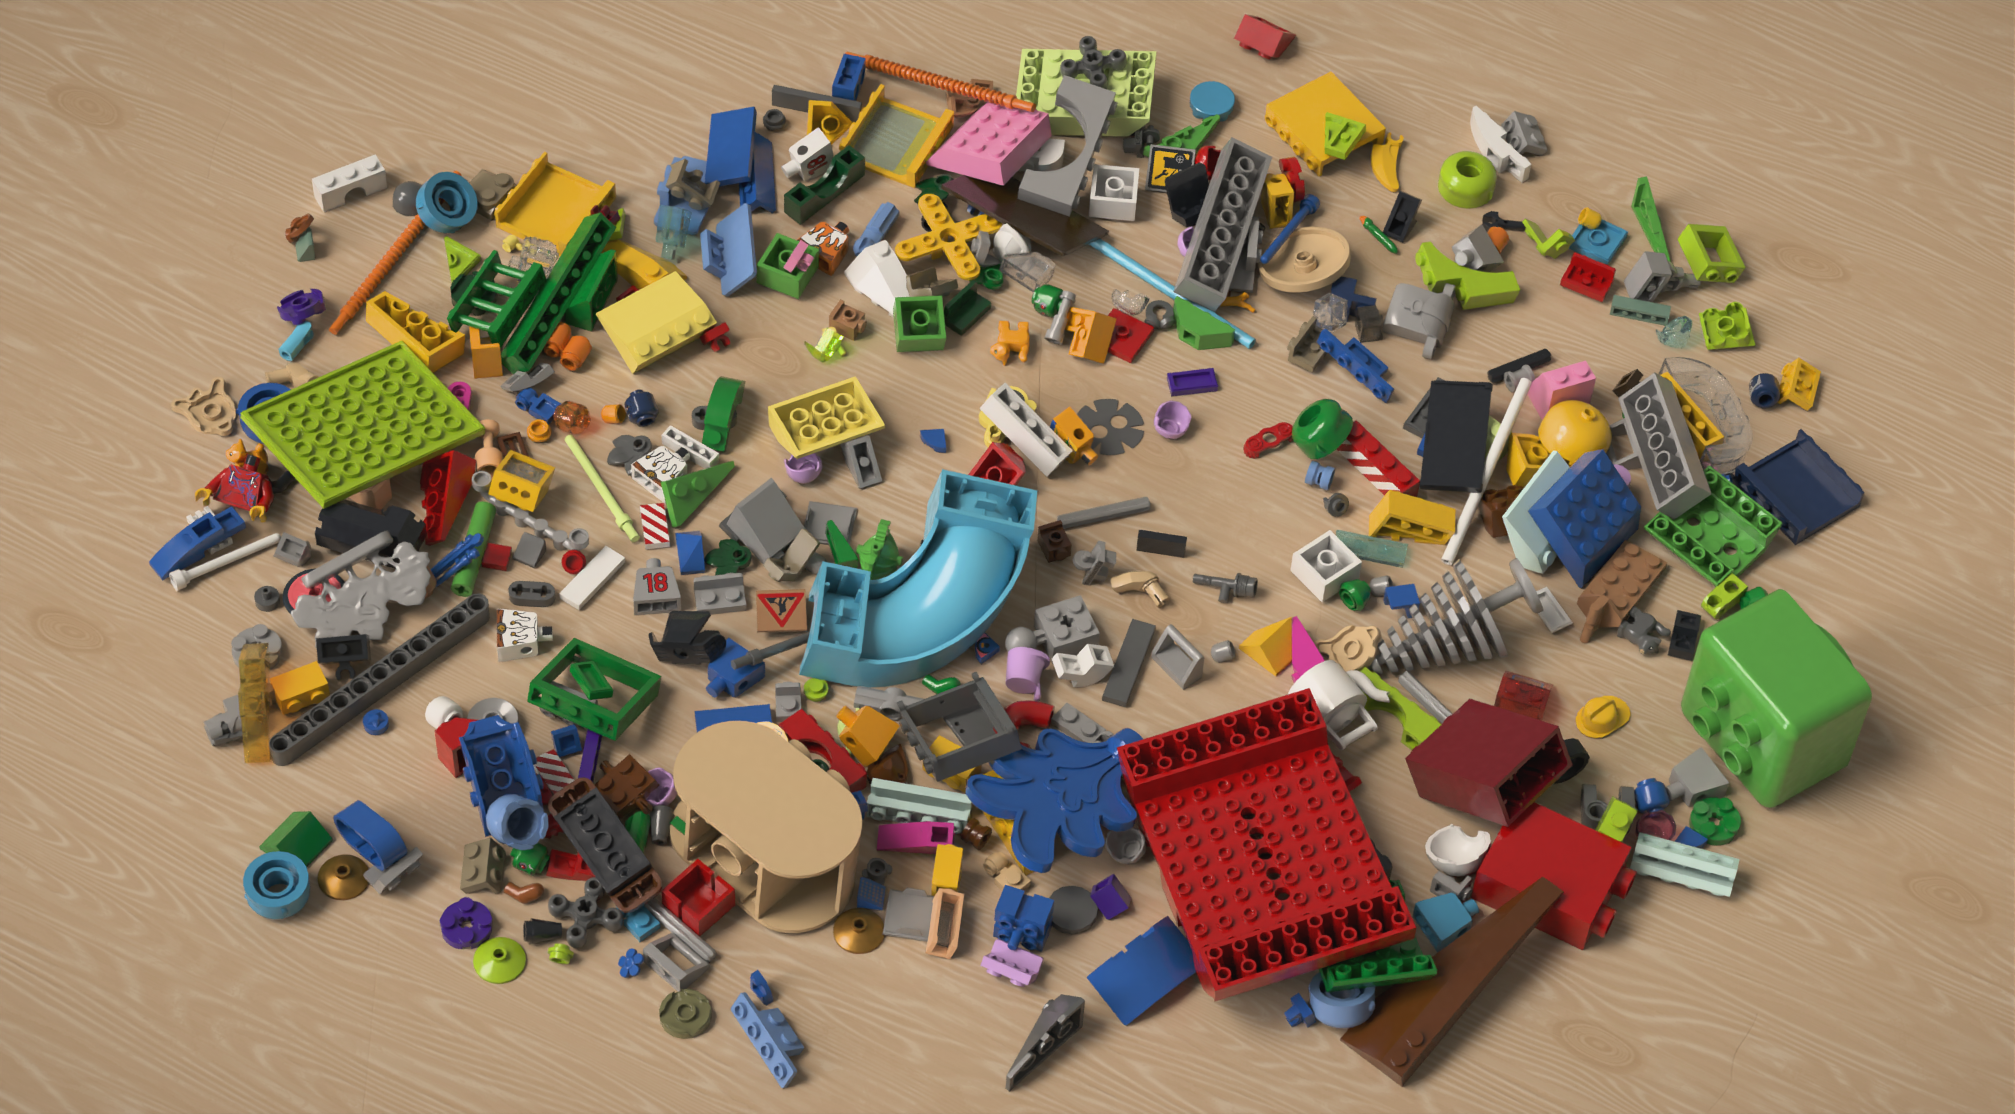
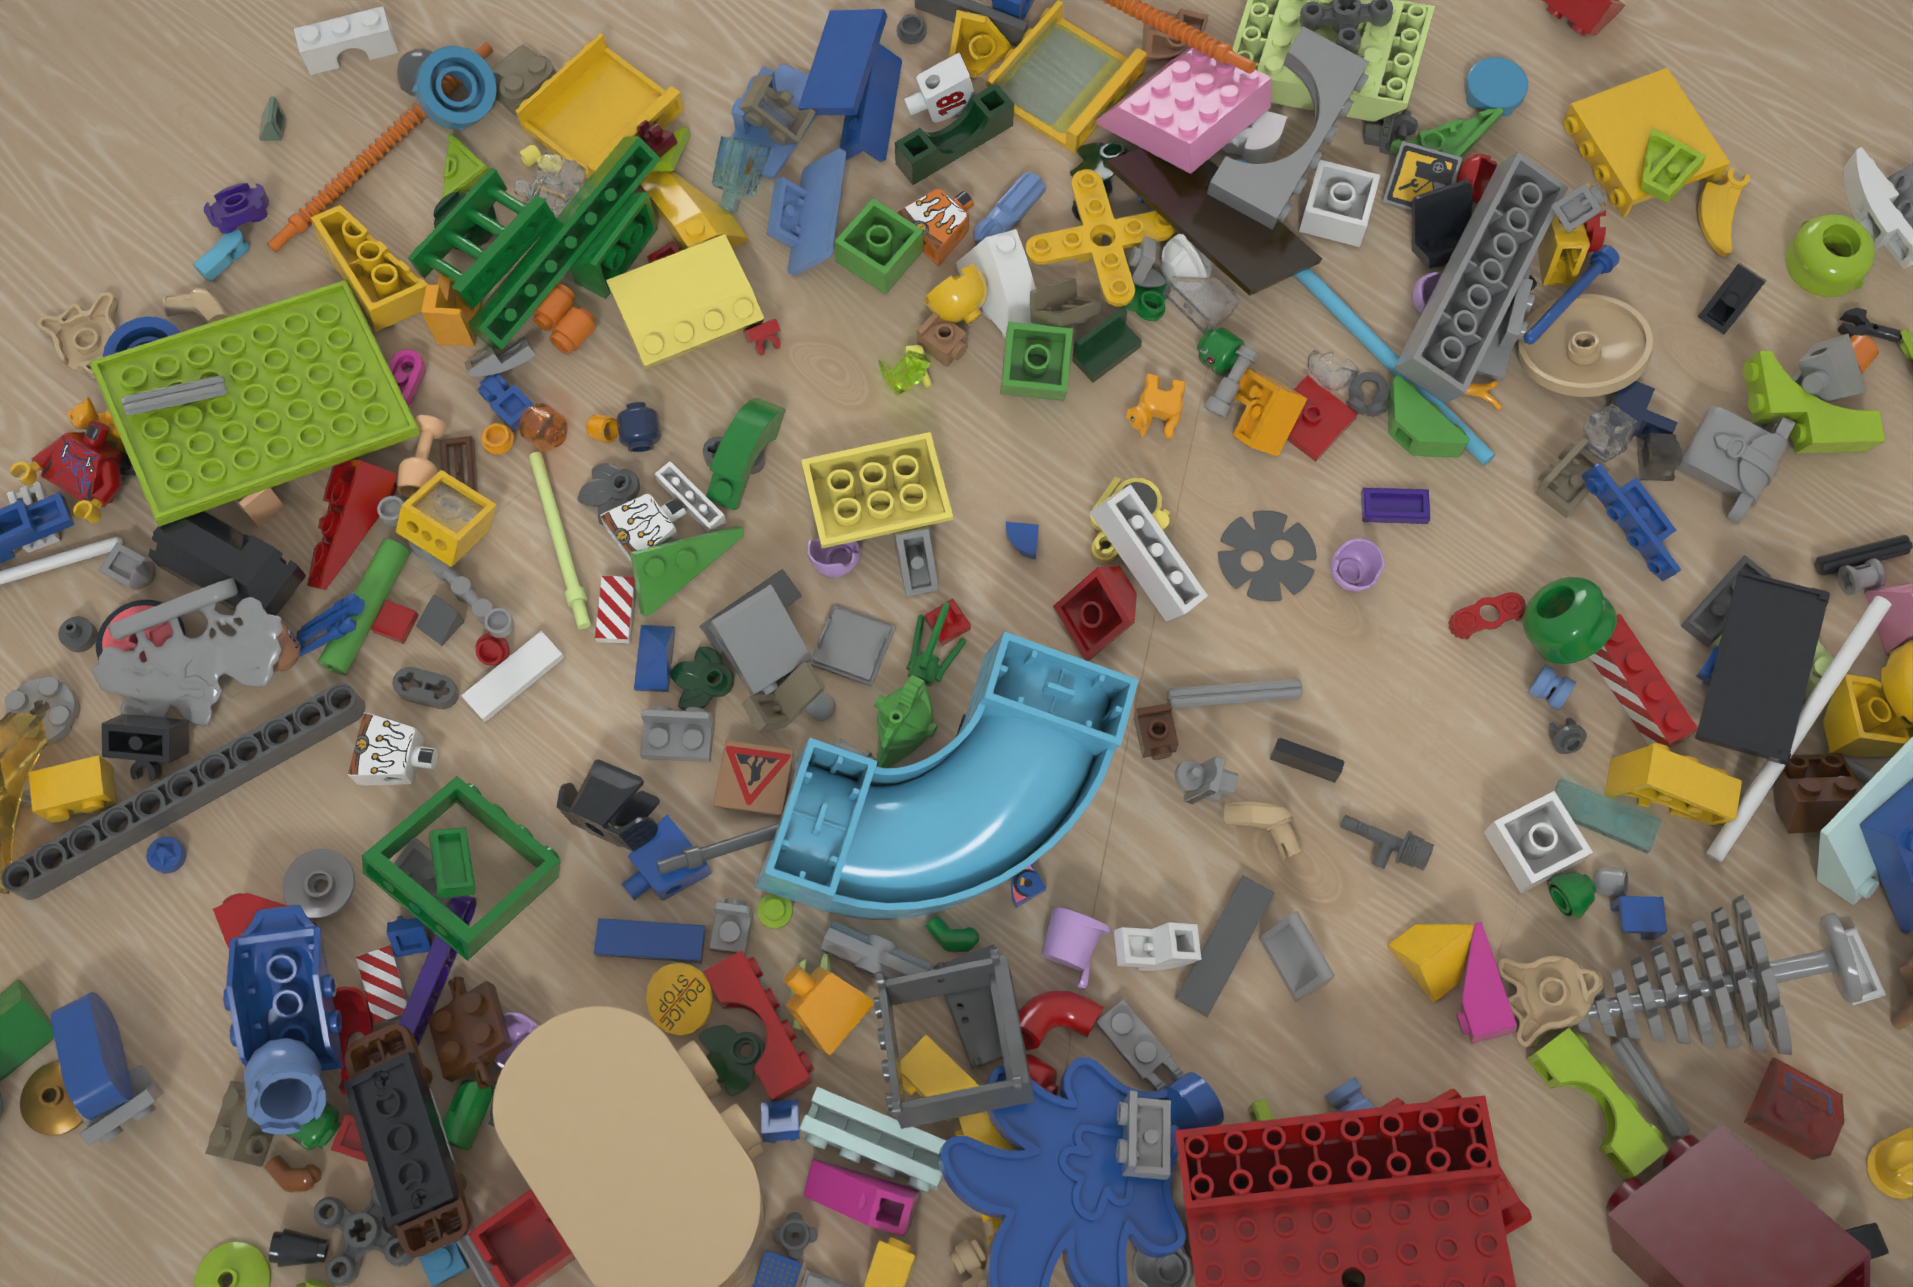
camera: 15 degrees right, 15 degrees up
(298, 226) = (268, 88): dark orange piece -> none
(311, 424) = (174, 395): none -> light grey axle
(442, 710) = (255, 864): white head -> none
(462, 911) = (178, 1208): dark purple plate -> none
(656, 589) = (590, 712): light grey torso -> none
(799, 258) = (890, 242): bright pink tile -> none
(839, 547) = (857, 700): green slope -> none
(854, 289) = (959, 296): none -> yellow cylinder
(889, 766) = (849, 1064): reddish brown piece -> none
(893, 499) = (954, 624): none -> red tile
(893, 528) = (926, 664): none -> green plant
(976, 834) = (946, 1204): reddish brown wheel -> none
(1060, 628) = (1130, 897): light grey brick -> none
(1075, 435) = (1214, 572): light orange torso -> none
(1097, 760) = (1145, 1137): none -> light grey bracket
(1223, 651) = (1364, 951): light grey piece -> none
(1281, 166) = (1580, 206): none -> light grey bracket
(1341, 699) = (1517, 1087): white piece -> none
(1378, 234) = (1680, 300): green piece -> none

